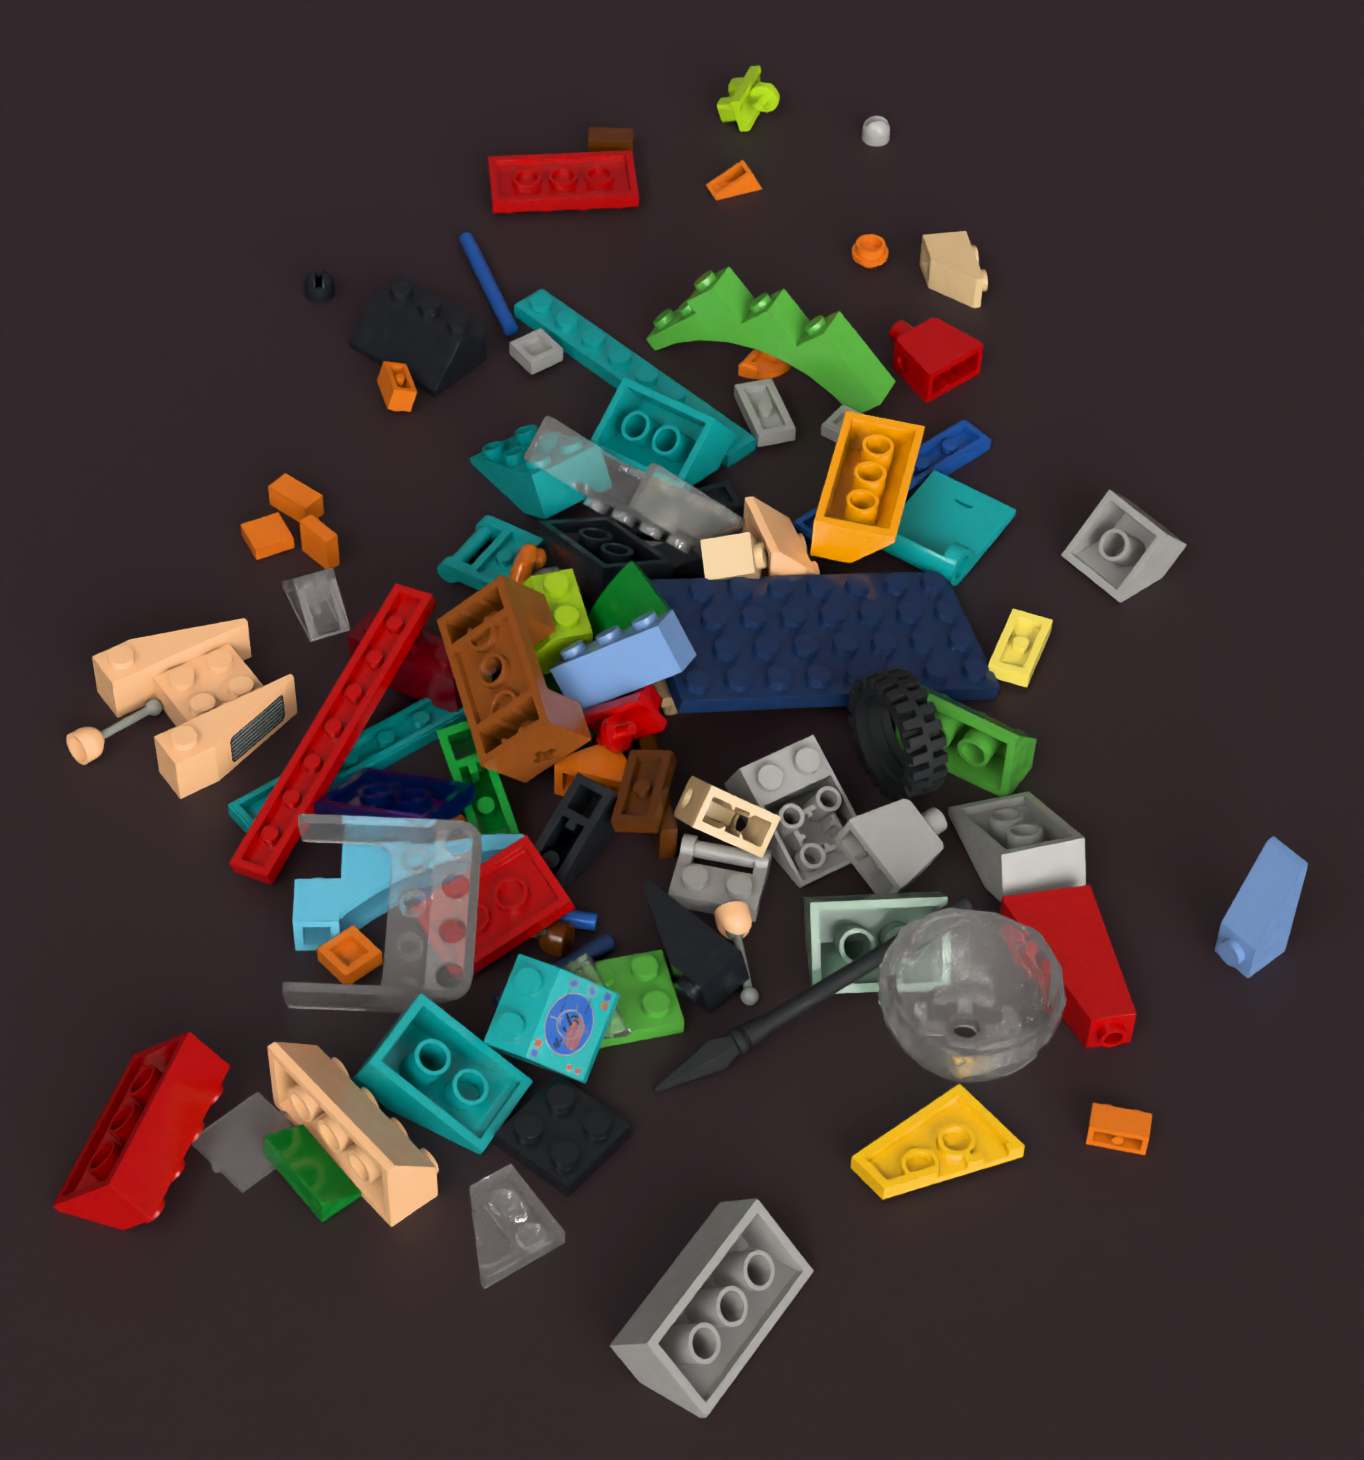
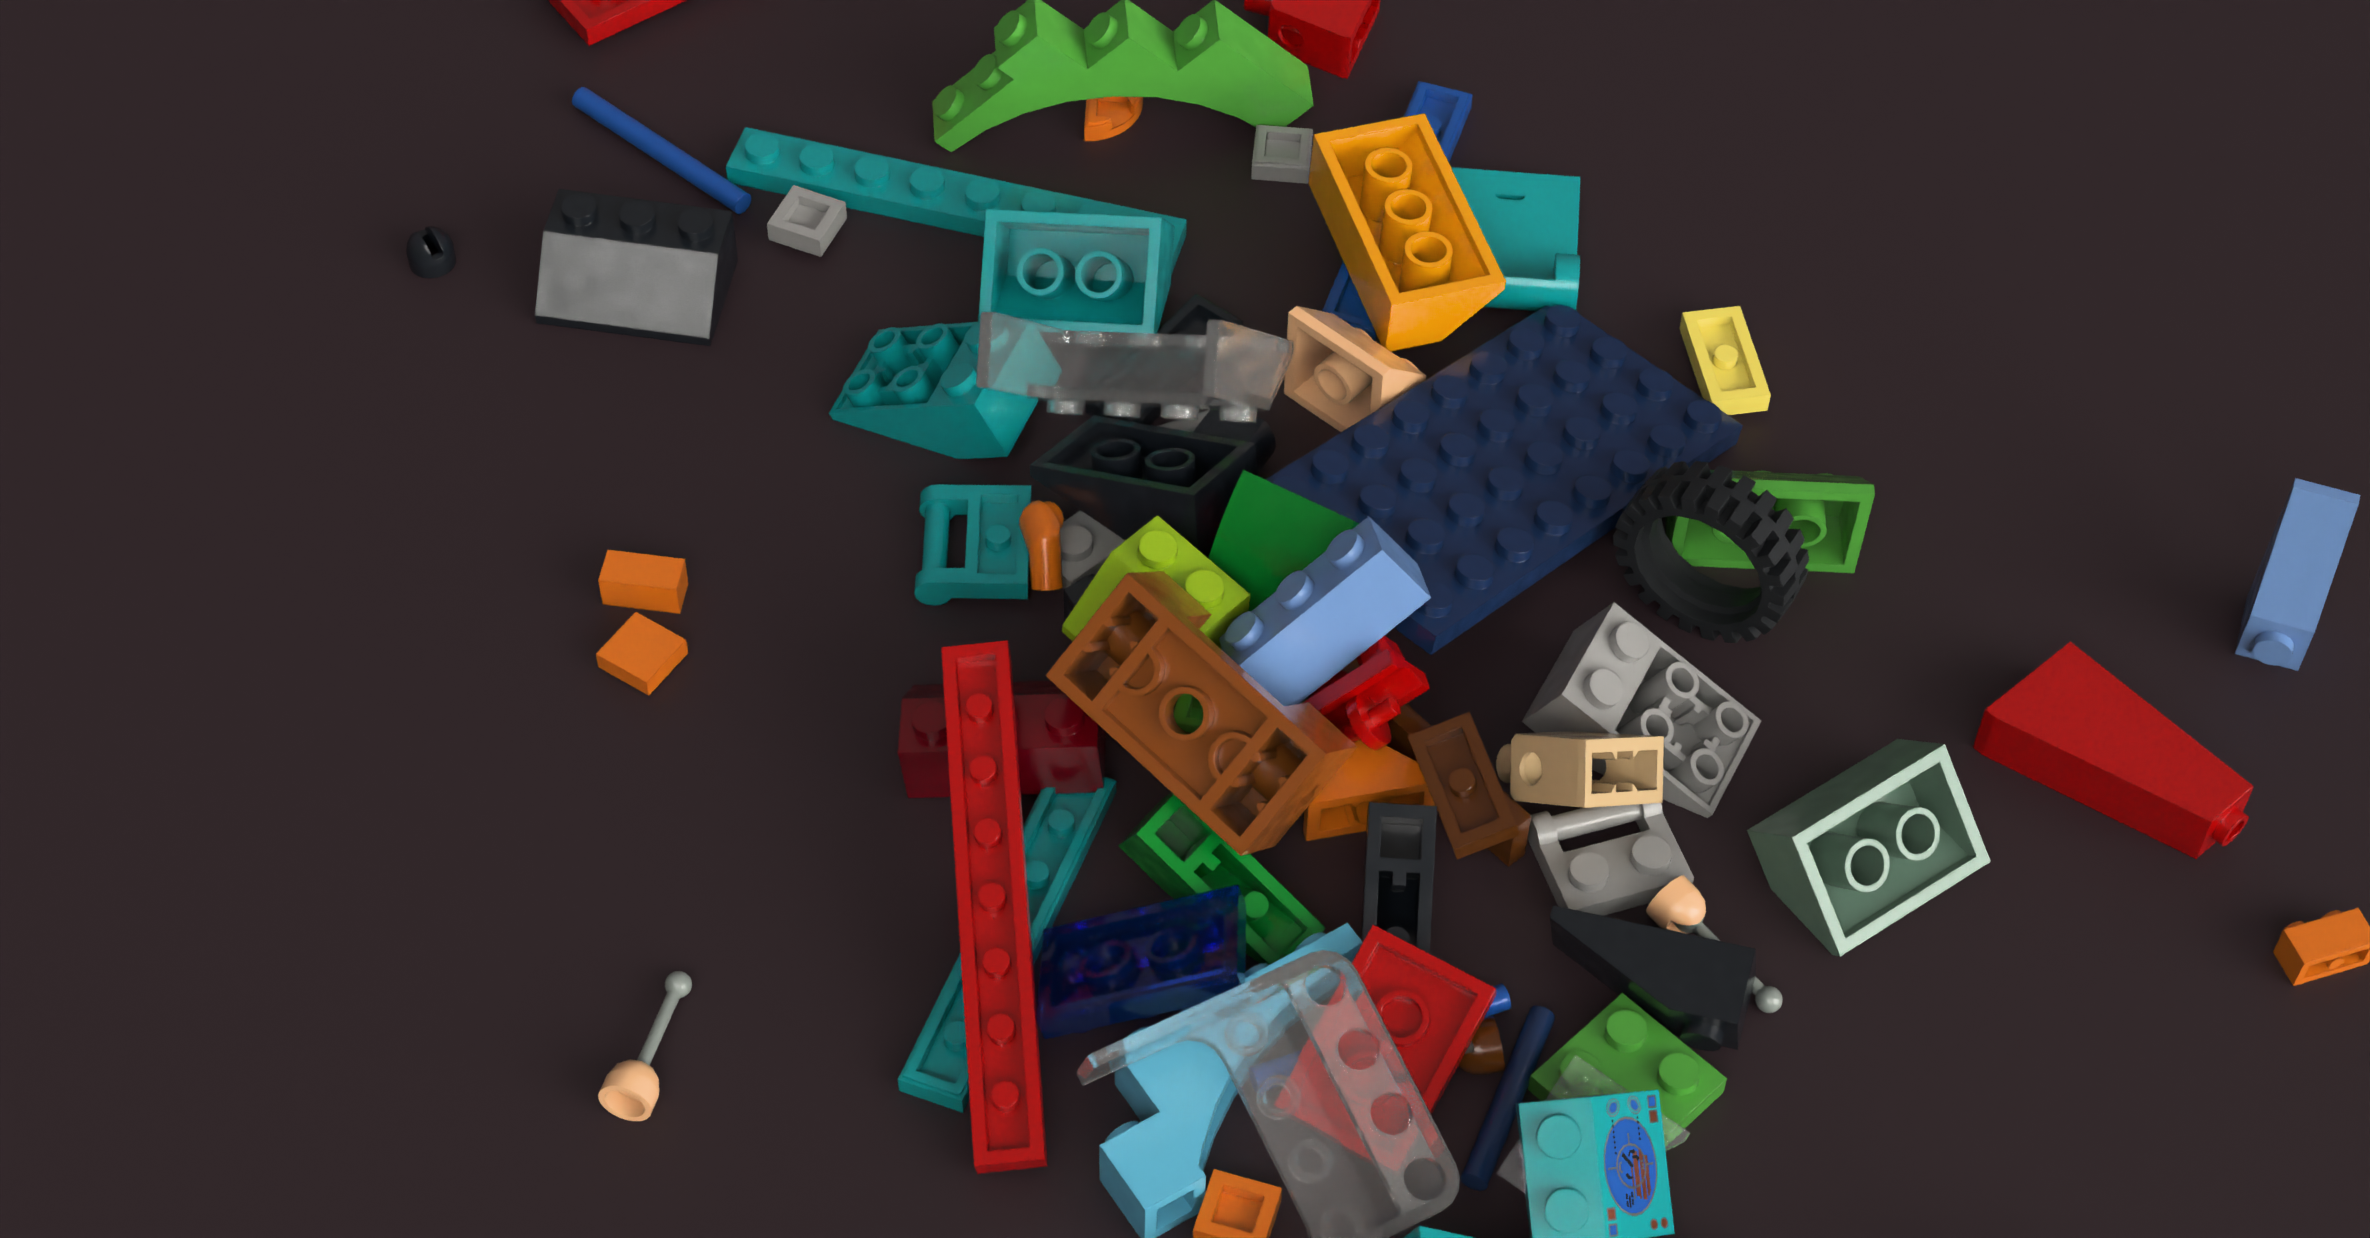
camera: 30 degrees left, 5 degrees up
(205, 692) = (743, 932): light nougat wedge -> none
(317, 603) = (788, 717): clear slope -> none
(319, 542) = (730, 630): orange tile -> none
(396, 386) = (658, 353): orange piece -> none
(719, 1051) = (1801, 1093): black piece -> none
(733, 557) = (1327, 407): slope -> none
(764, 412) = (1169, 178): light grey plate -> none
(892, 844) = (1802, 708): light grey torso -> none
(935, 1145) = (2148, 1085): yellow wing -> none
(972, 974) = (2082, 832): clear piece -> none
(1020, 845) = (1934, 628): light grey slope -> none
(1123, 547) = (1742, 173): light grey slope -> none

